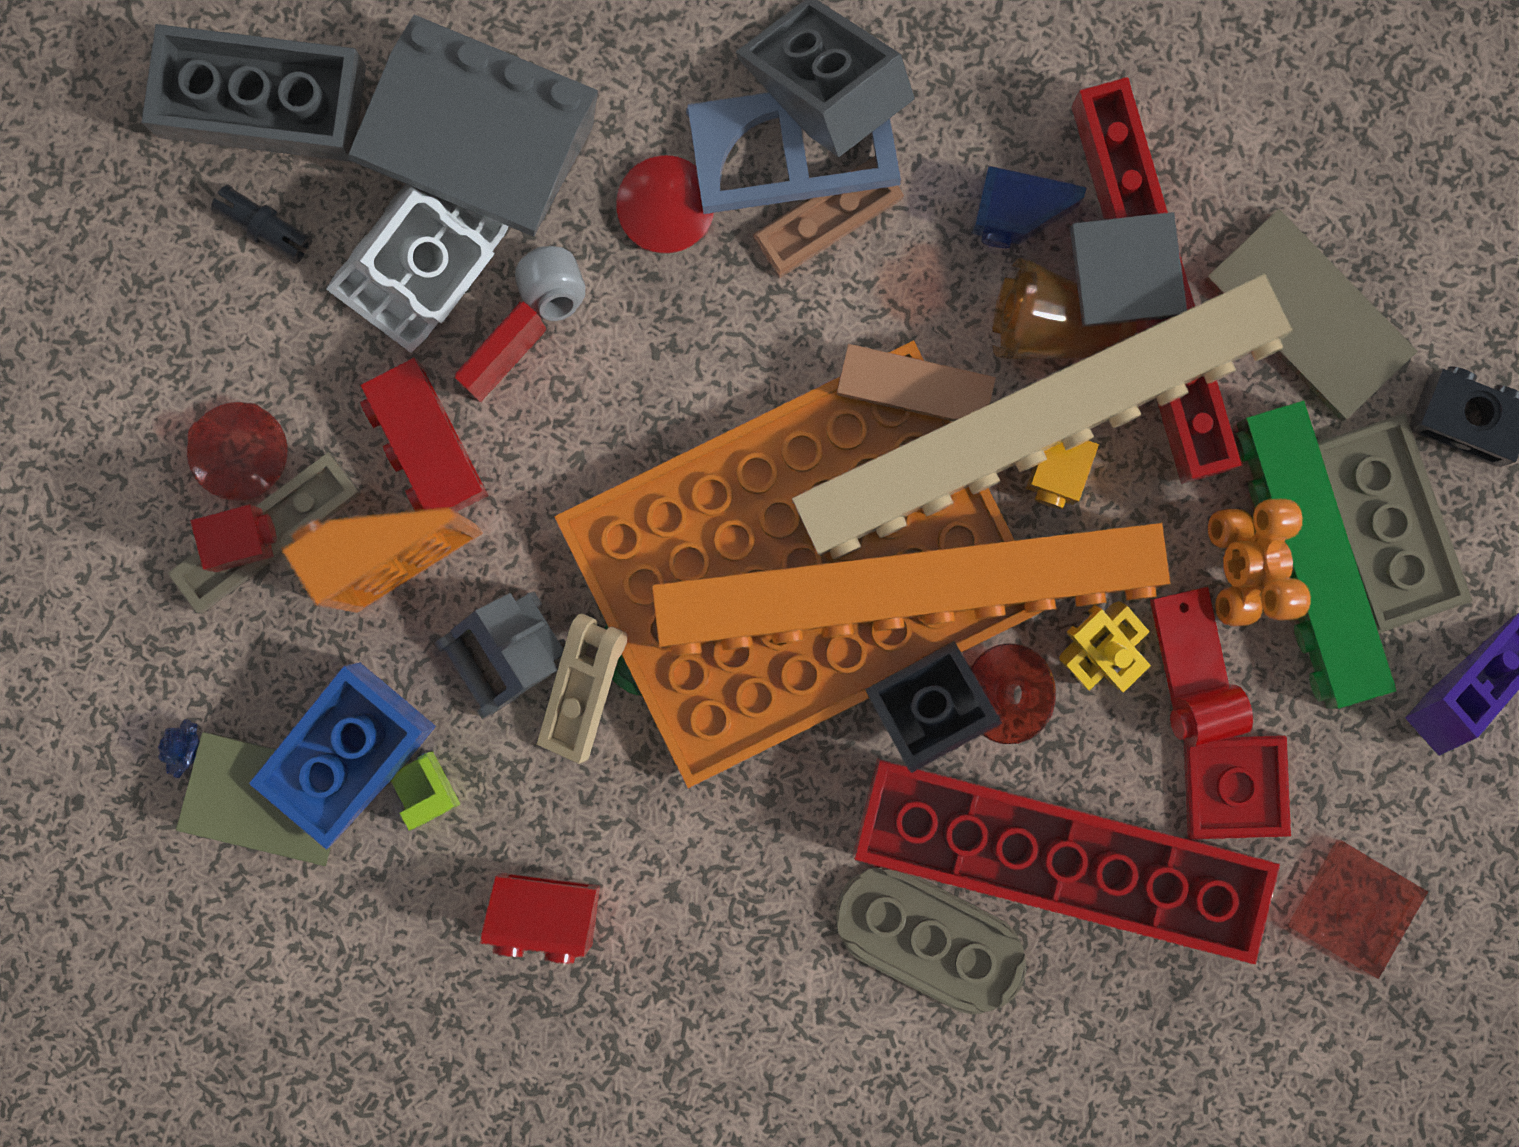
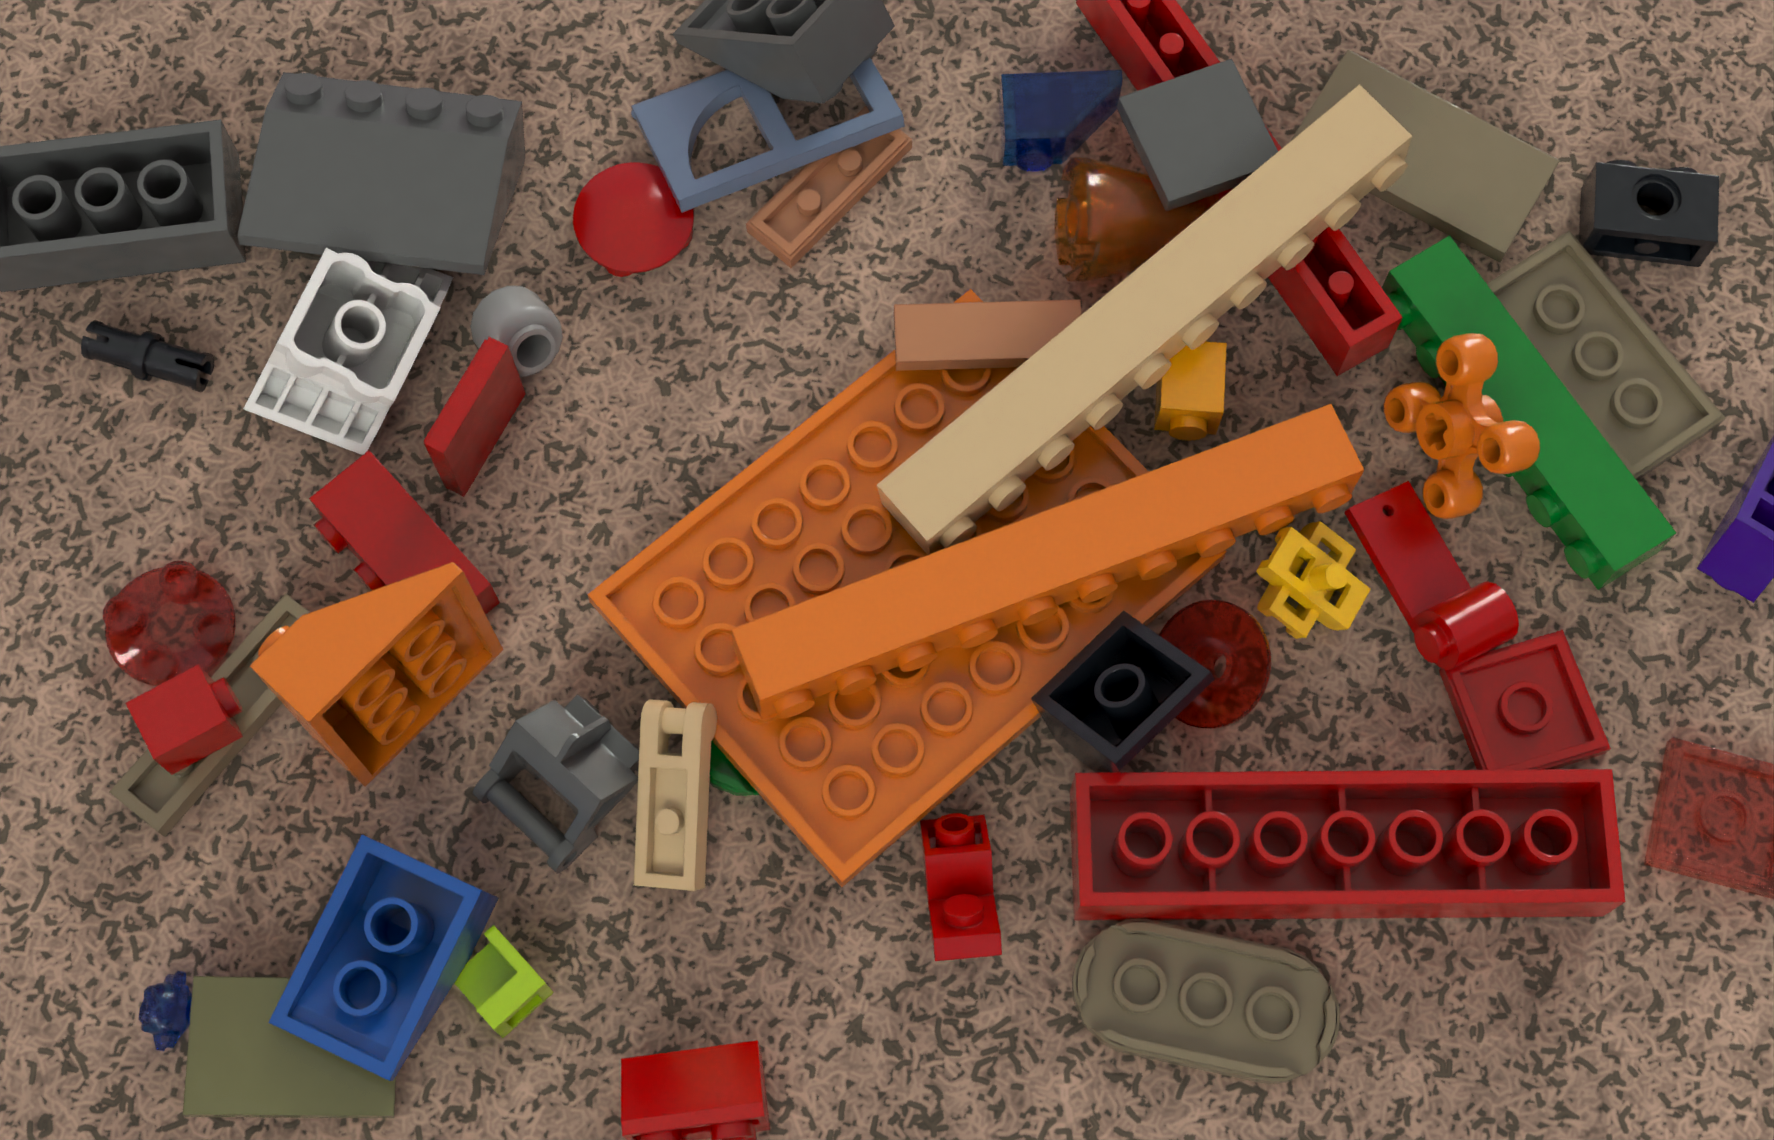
camera: 20 degrees left, 15 degrees down
(775, 811) = (960, 887): none -> red slope

